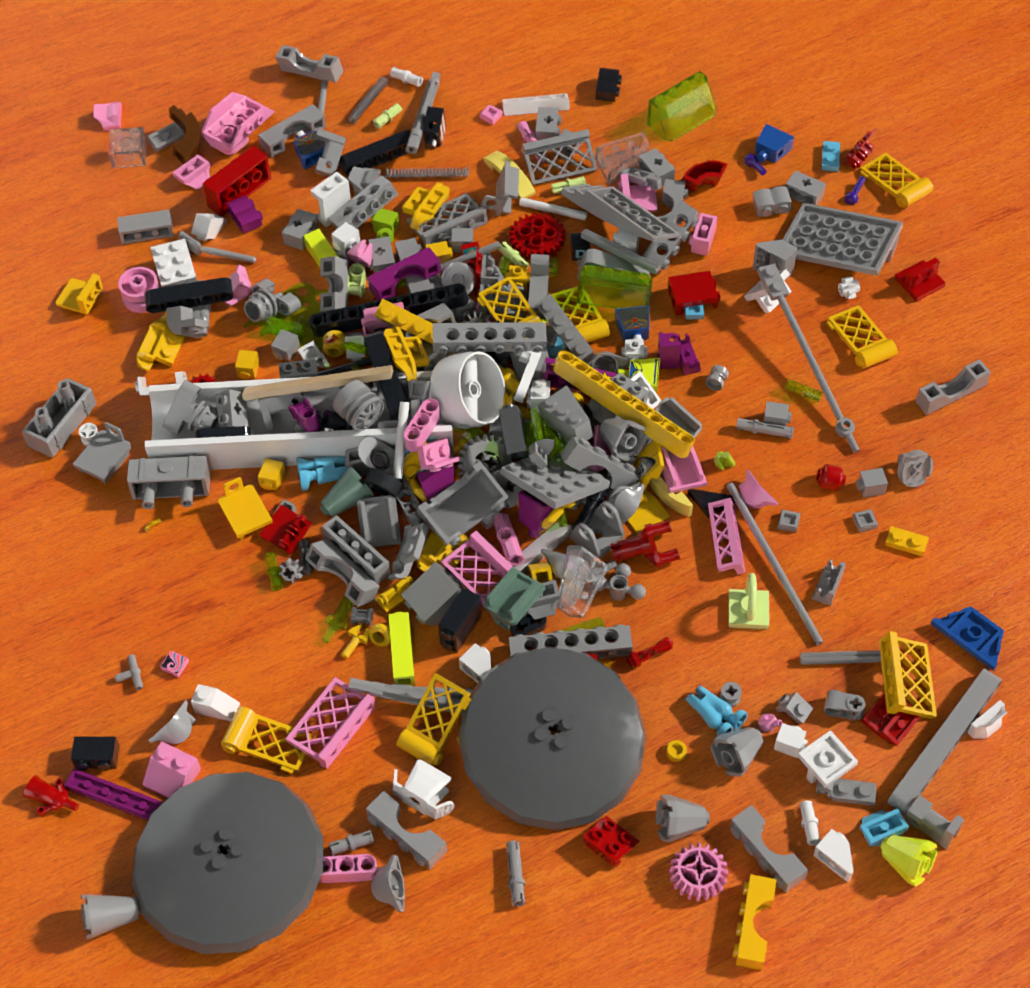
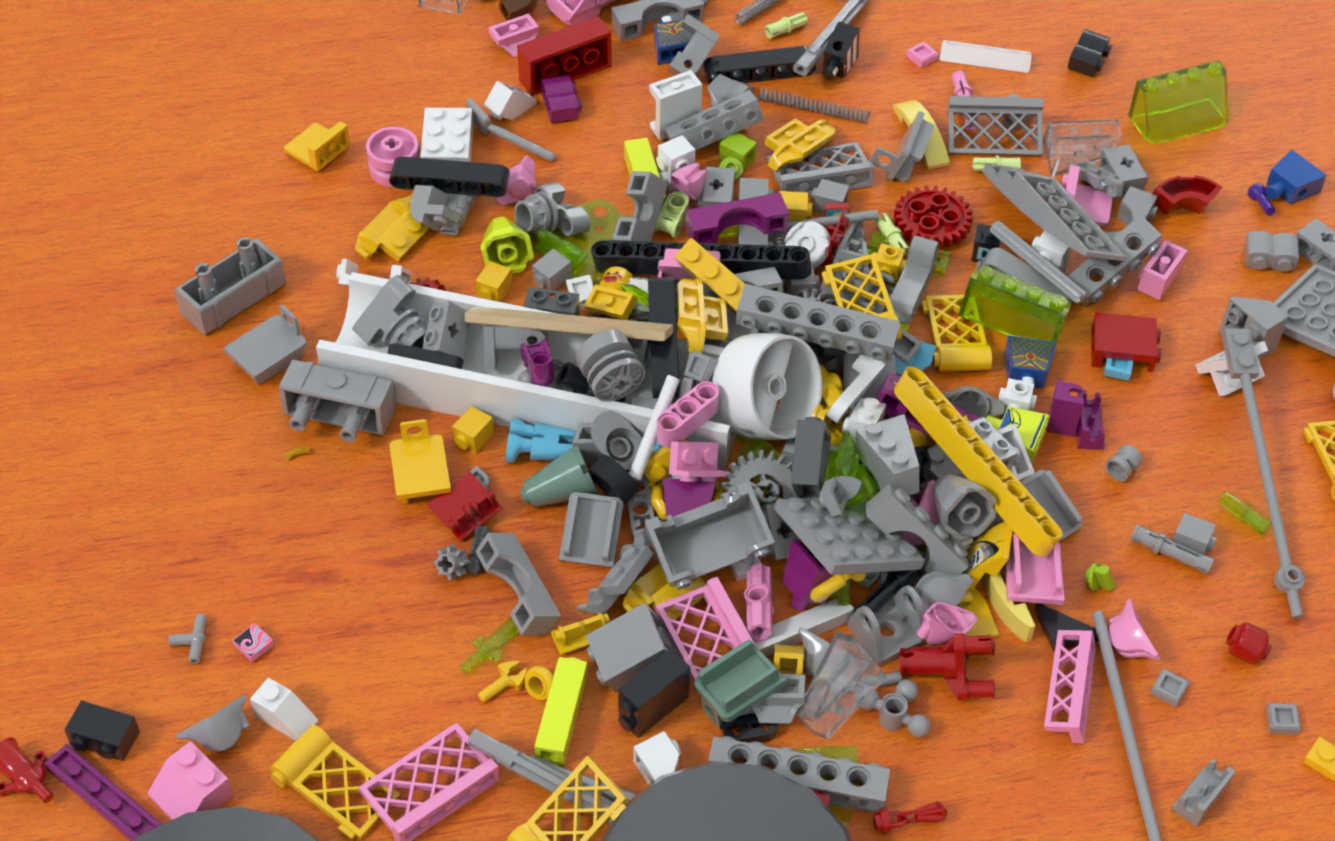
camera: 15 degrees right, 5 degrees down
(85, 432) = (258, 313): white wheel -> none
(145, 226) = (430, 84): light grey brick -> none
(246, 334) = (506, 245): none -> neon yellow cone
(273, 571) = (429, 553): clear neon green axle -> none
(299, 224) = (624, 127): light grey brick -> none
(336, 357) = (610, 302): none -> yellow plate
(356, 549) = (547, 558): light grey brick -> none
(362, 616) = (524, 650): dark grey bush -> none
(547, 123) = (993, 79): light grey brick -> none
(563, 327) = (928, 341): light grey arch -> none
(564, 211) = (966, 189): white piece -> none
(634, 519) = (943, 621): none -> bright pink hat
(748, 607) = (1074, 793): yellowish green tile -> none
(872, 482) = (1308, 667): light grey brick -> none

